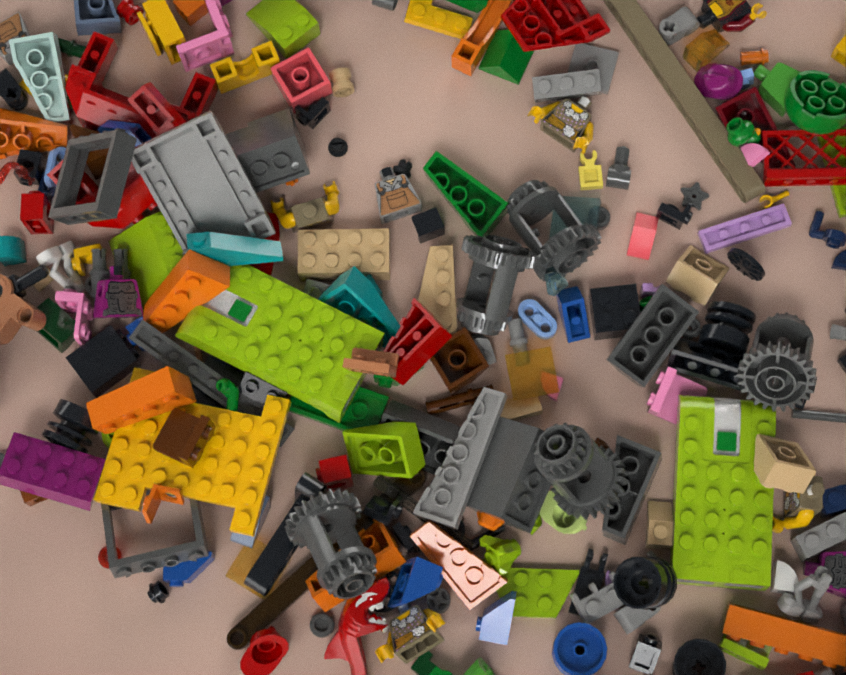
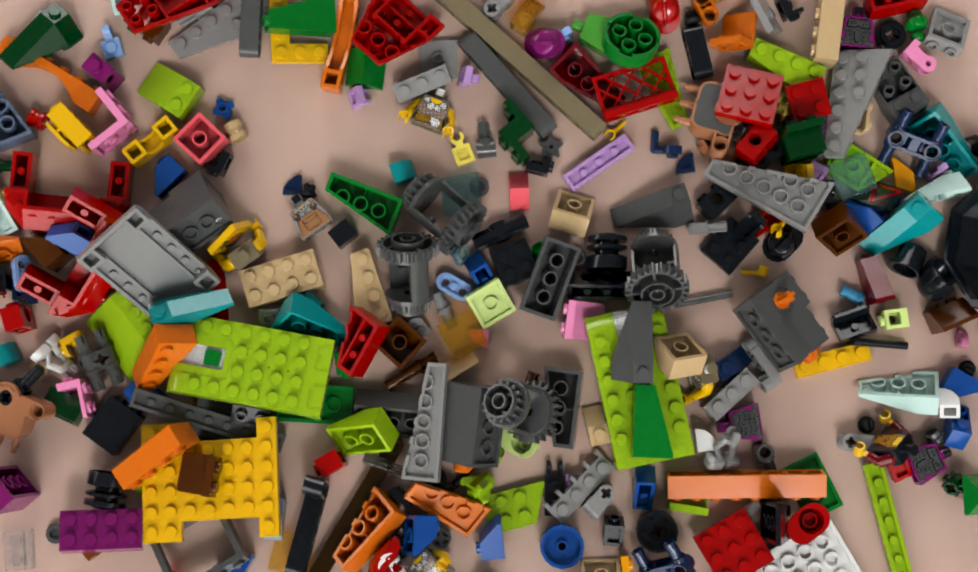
camera: 20 degrees left, 10 degrees up
(112, 181) = (71, 285): dark grey window -> none
(117, 296) = (108, 372): torso -> none
(158, 494) = (191, 531): orange bracket -> none
(231, 391) = (225, 423): green arm -> none
(251, 106) = (167, 175): none -> blue slope
(300, 189) = (229, 237): none -> yellow tile
(332, 520) = (335, 508): dark grey piece -> none
(336, 61) = (223, 113): none -> blue plate
(337, 147) = (249, 187): black piece -> none
(372, 362) = (332, 371): nougat bracket -> none
(382, 510) = (376, 481): black bracket -> none
(387, 159) = (294, 186): none -> dark blue tile
(489, 83) = (357, 97): none -> lavender tile
(514, 175) = (403, 171): none -> teal brick
(574, 347) = (490, 303): none -> yellowish green plate
(608, 272) = (500, 231): none -> black piece
(619, 95) = (467, 77): none -> lavender tile
(633, 587) = (594, 490): black wheel -> none
(648, 289) = (535, 237): lavender tile -> none
(657, 167) = (515, 132): none -> dark green bracket
(663, 116) = (506, 83): none -> dark grey beam
(696, 612) = (643, 487): none -> blue slope
(723, 535) = (648, 424): none -> green slope
(731, 439) = (634, 351): none -> dark grey wedge
(742, 132) = (575, 84): green animal -> none
(746, 264) = (607, 194): black wheel -> none
(754, 57) = (567, 13): orange pin -> none
(754, 153) = (590, 99): bright pink tile -> none
(811, 298) = (660, 209): none -> dark grey wedge

